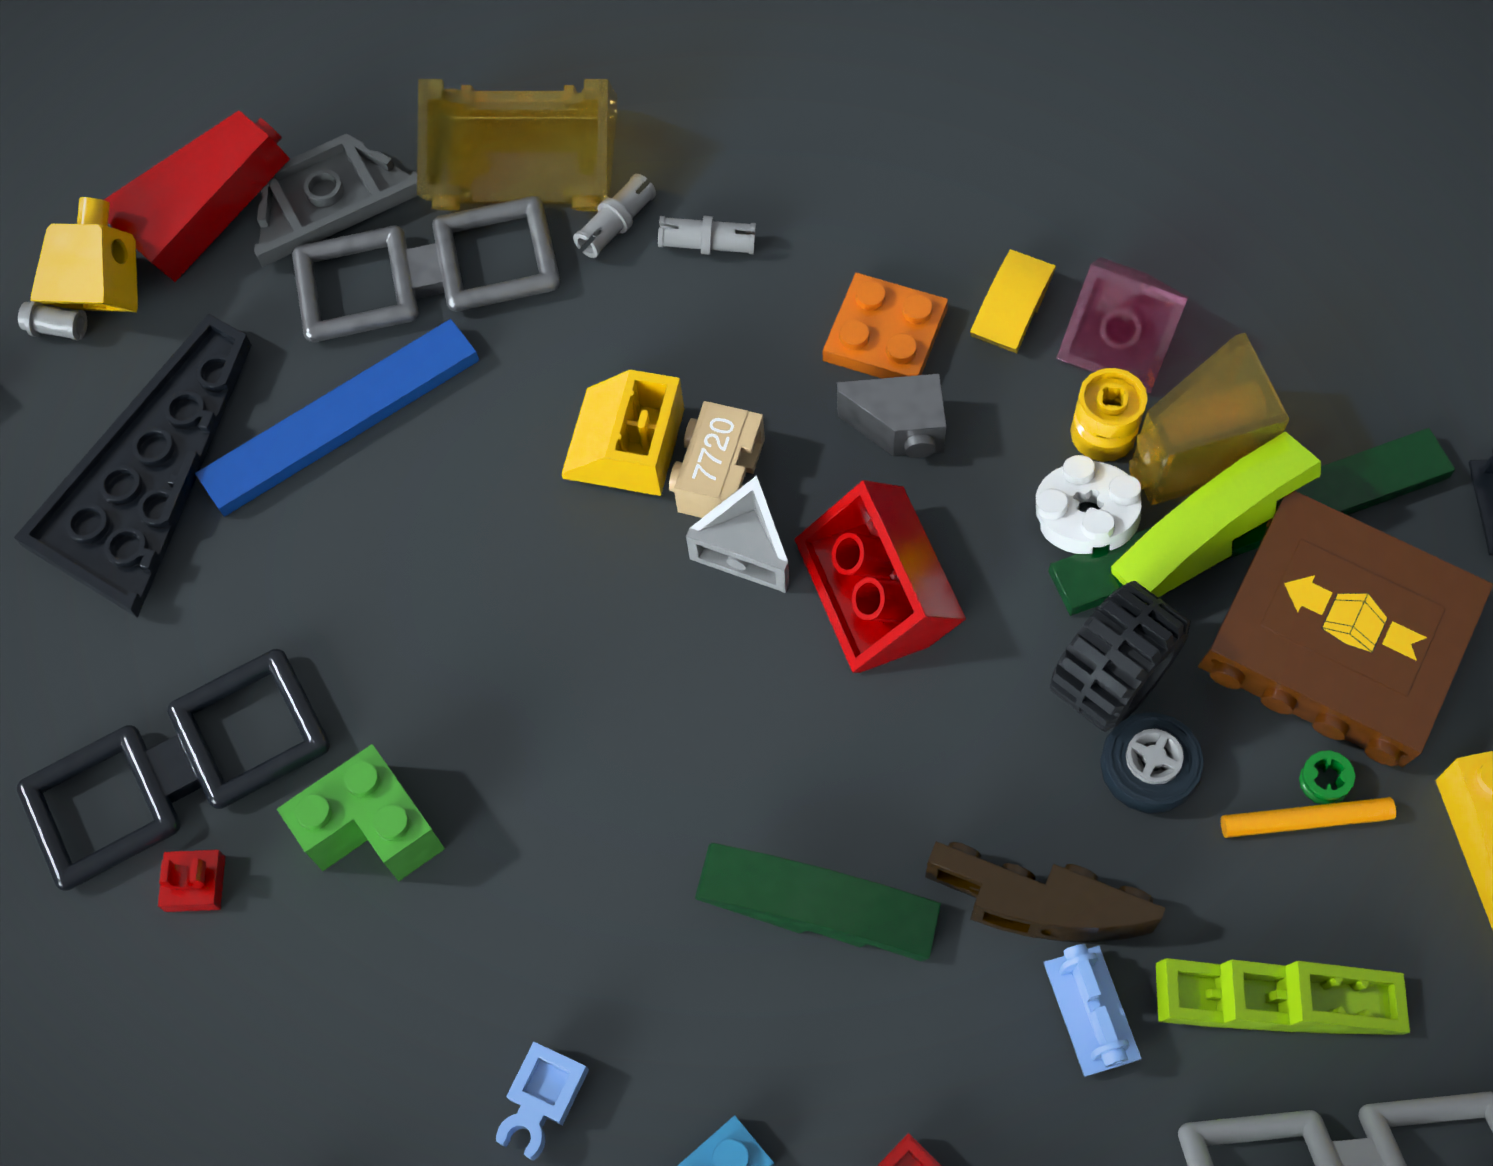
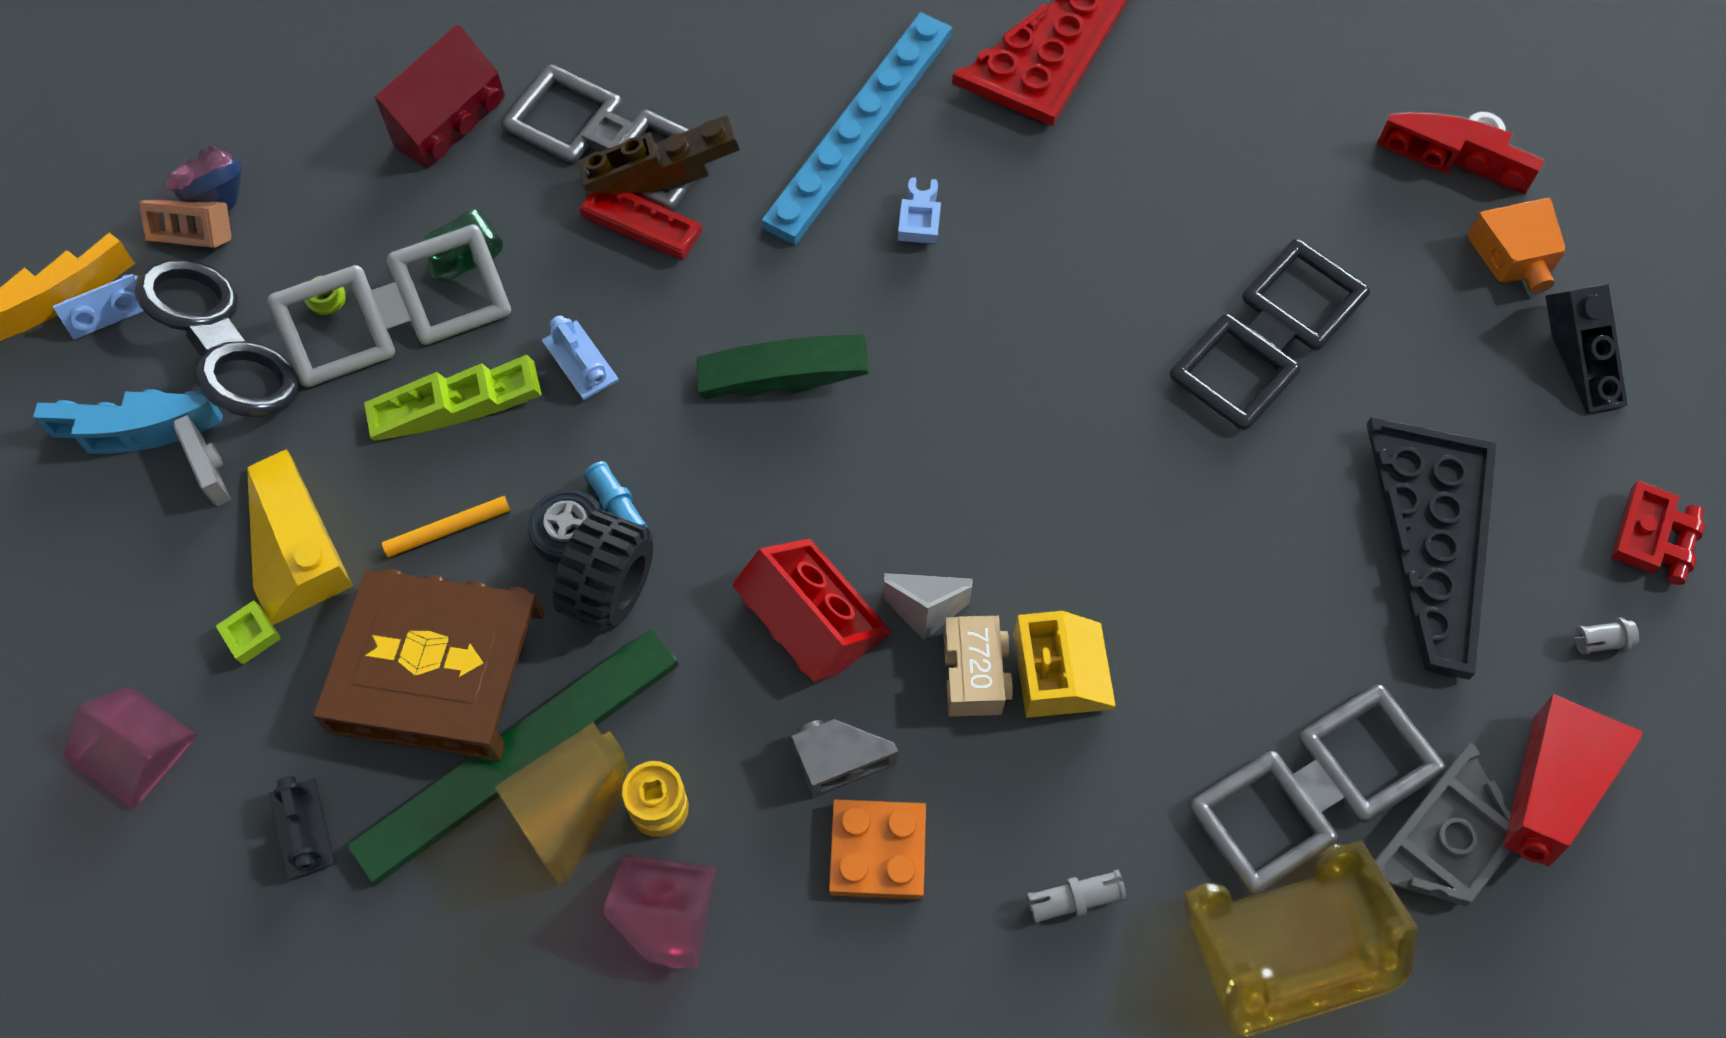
camera: 155 degrees right, 0 degrees up
(87, 263) = (1602, 672): yellow torso -> none
(191, 880) = (1214, 271): red tile -> none
(337, 417) = (1309, 629): blue tile -> none
(361, 805) = (1114, 336): bright green brick -> none
(614, 215) = (1171, 892): light grey pin -> none
(1012, 300) = (768, 910): yellow slope -> none
(1064, 909) = (613, 406): dark brown slope -> none
(1083, 779) = (612, 496): none -> dark azure pin
(1088, 481) = (644, 694): white plate -> none
(1220, 511) = (545, 712): lime slope -> none
(1344, 782) = (435, 544): green bush -> none

